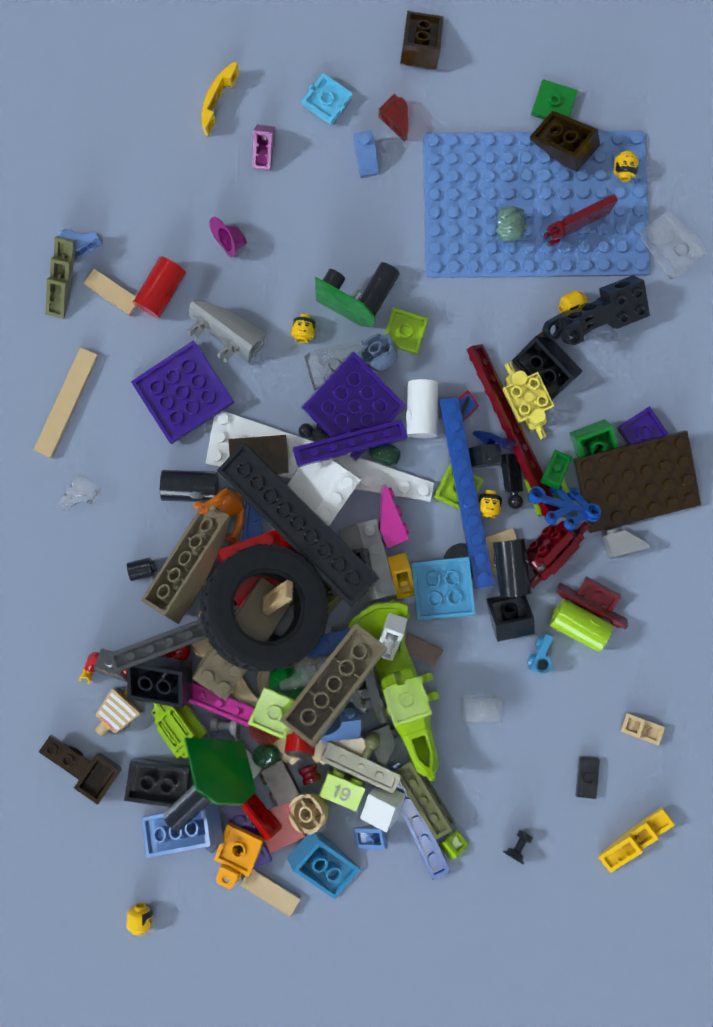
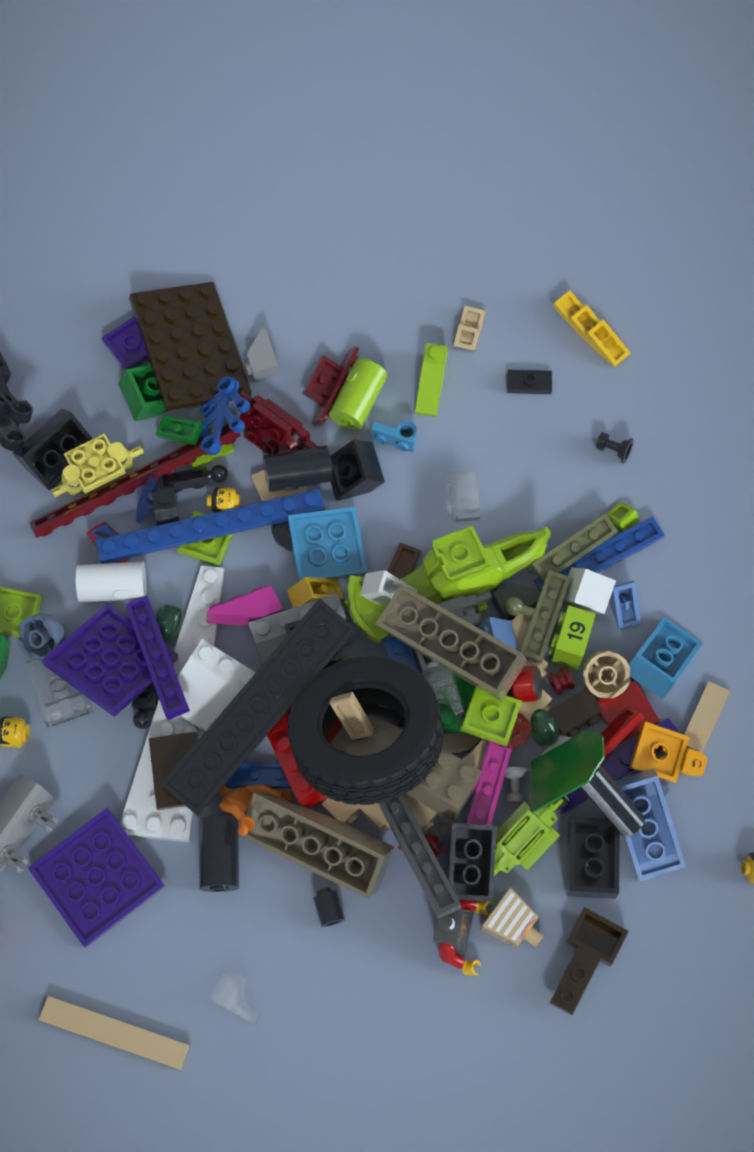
camera: 95 degrees left, 15 degrees down
(592, 690) = (431, 379): none -> lime slope

